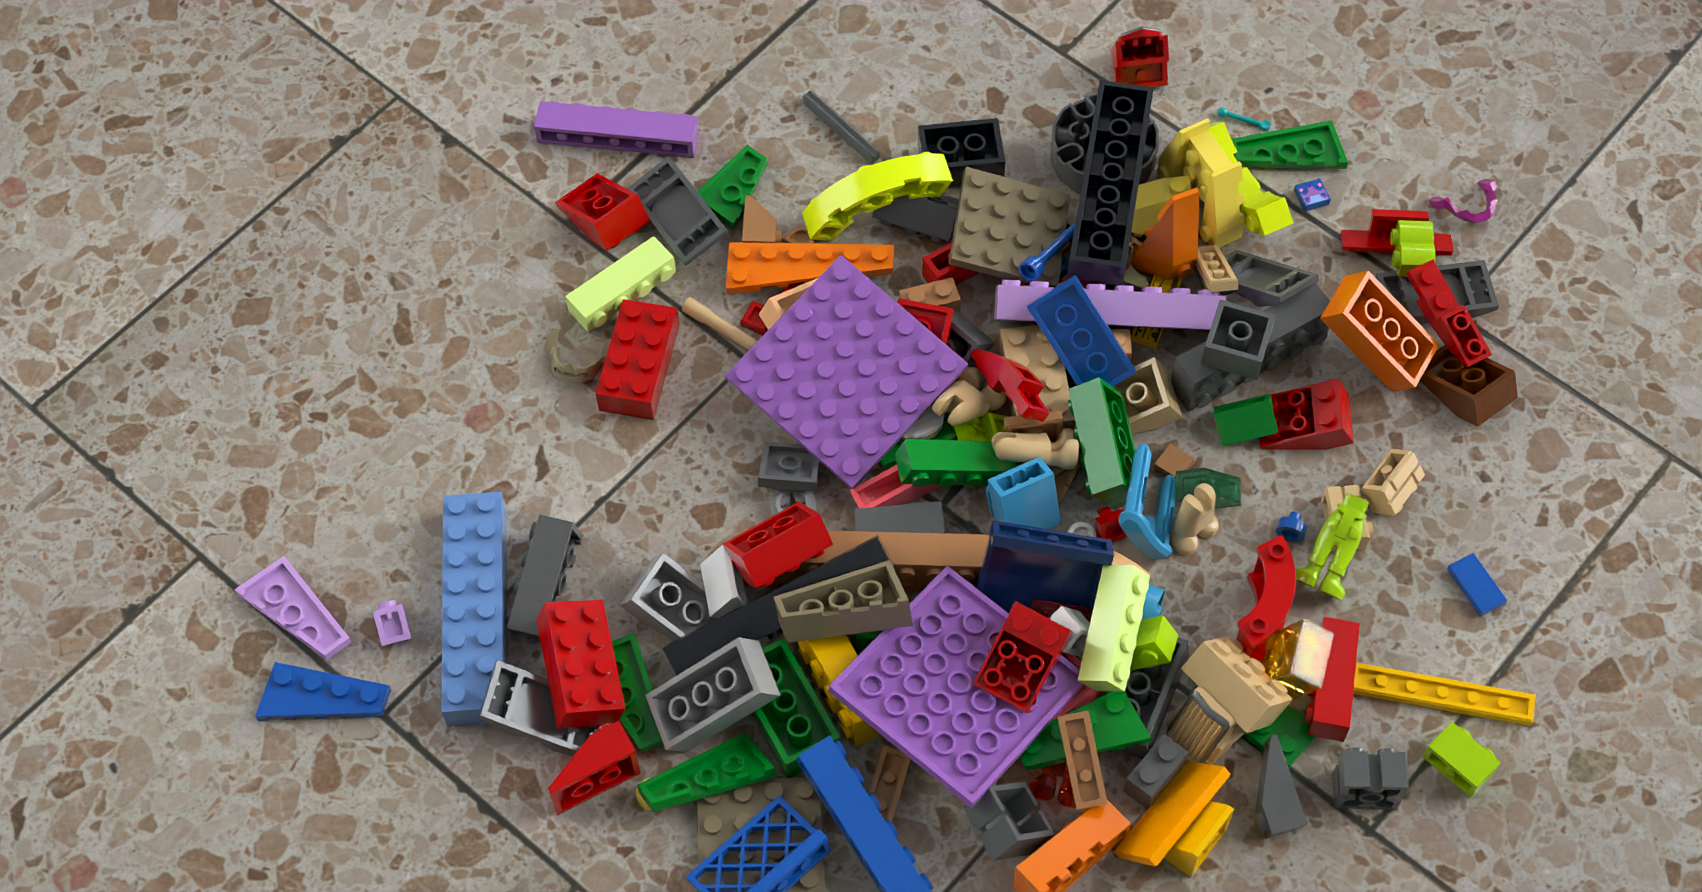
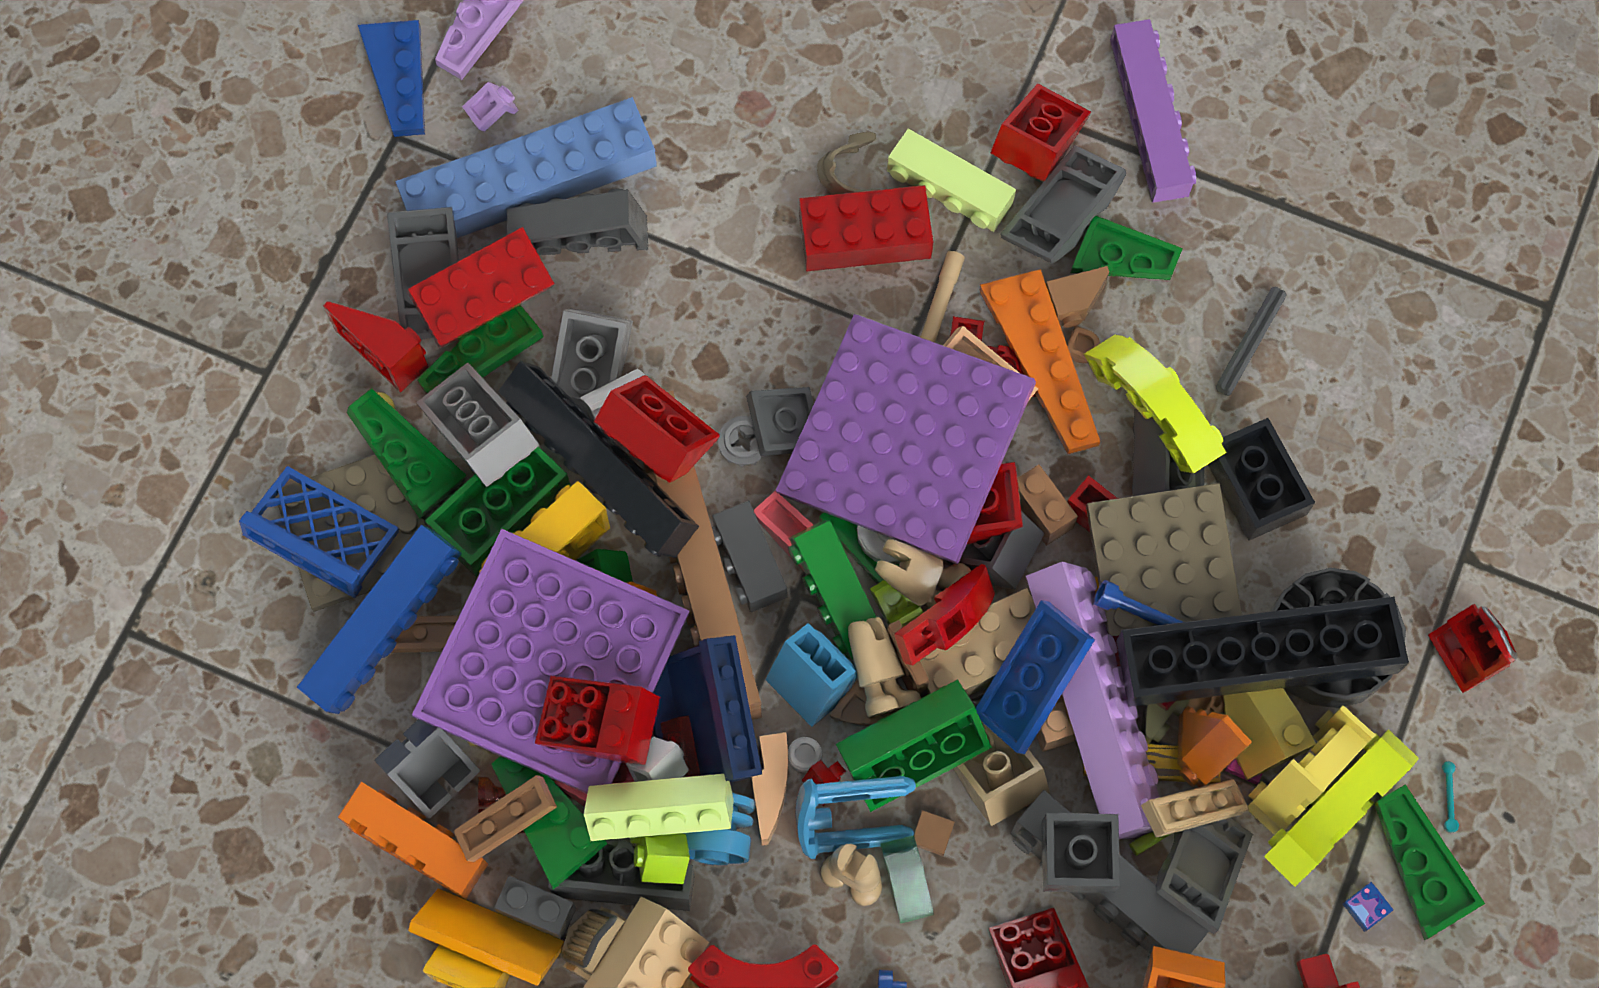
camera: 70 degrees right, 10 degrees up
(845, 605) = (598, 517): dark tan wedge -> none
(1245, 419) = (1012, 898): green panel -> none

